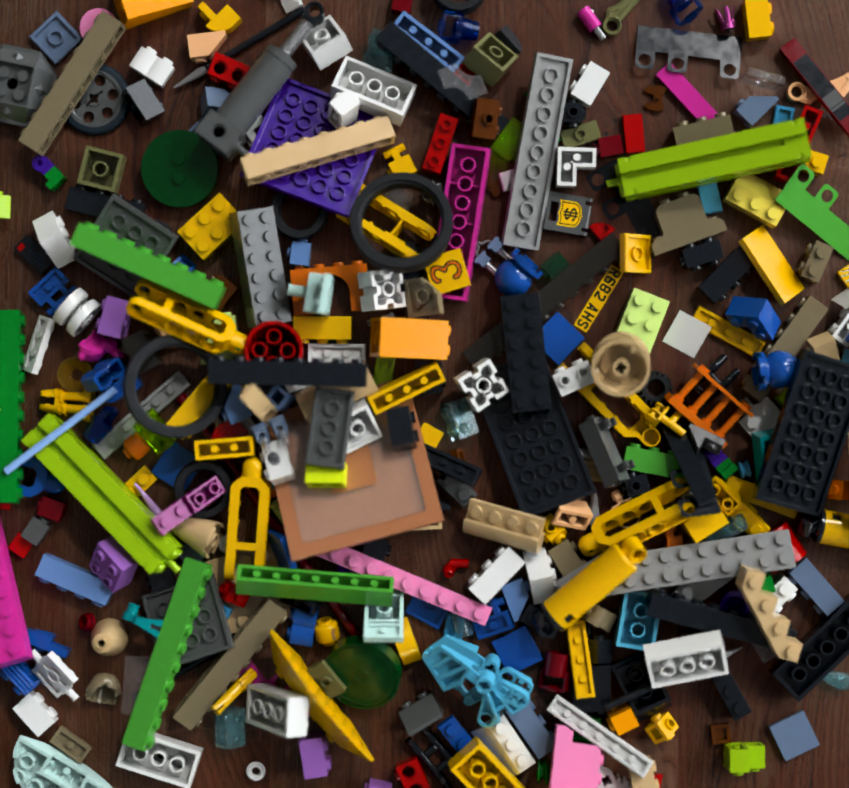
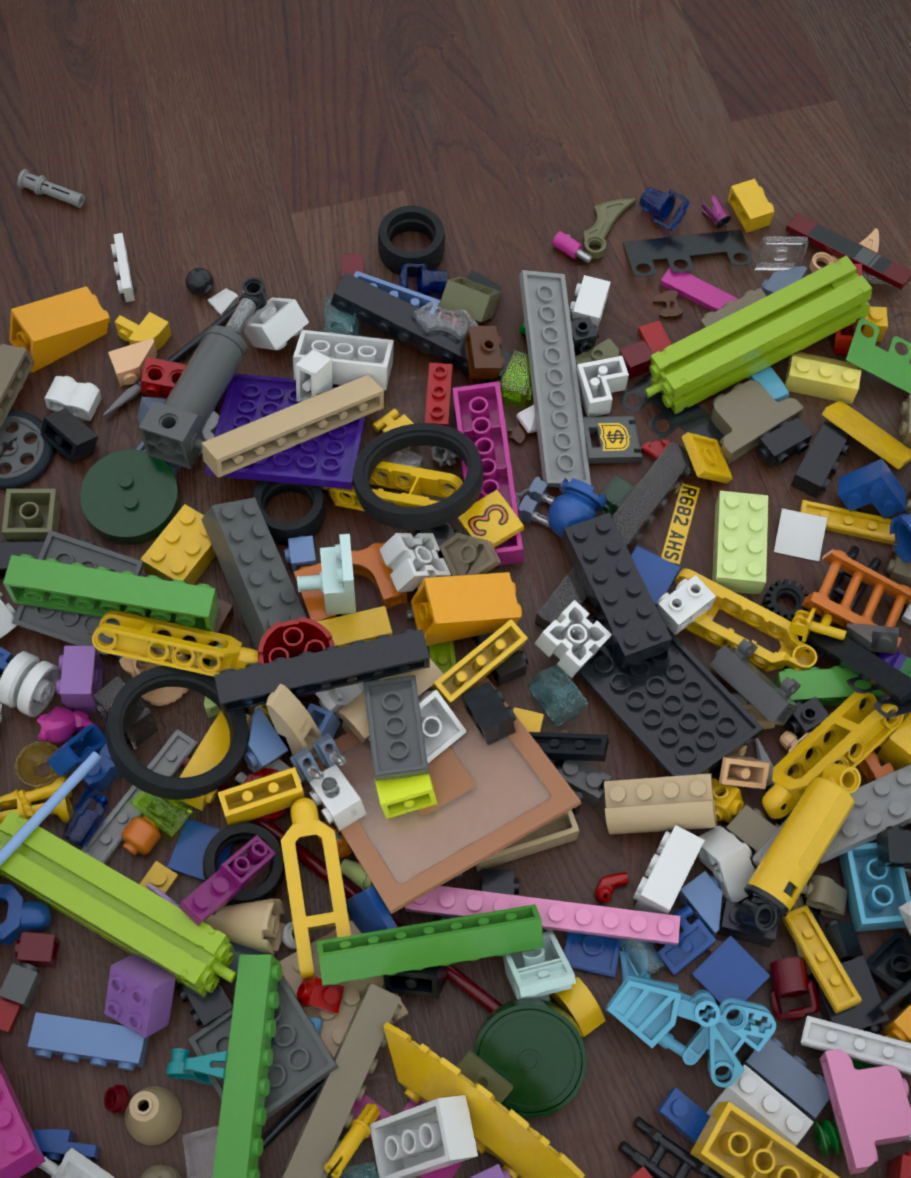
camera: 20 degrees left, 25 degrees down
(302, 628) = (427, 1021): blue brick -> none
(326, 631) = (462, 1018): yellow head -> none
(420, 712) = (627, 1096): dark grey slope -> none
(628, 376) = (757, 560): tan piece -> none

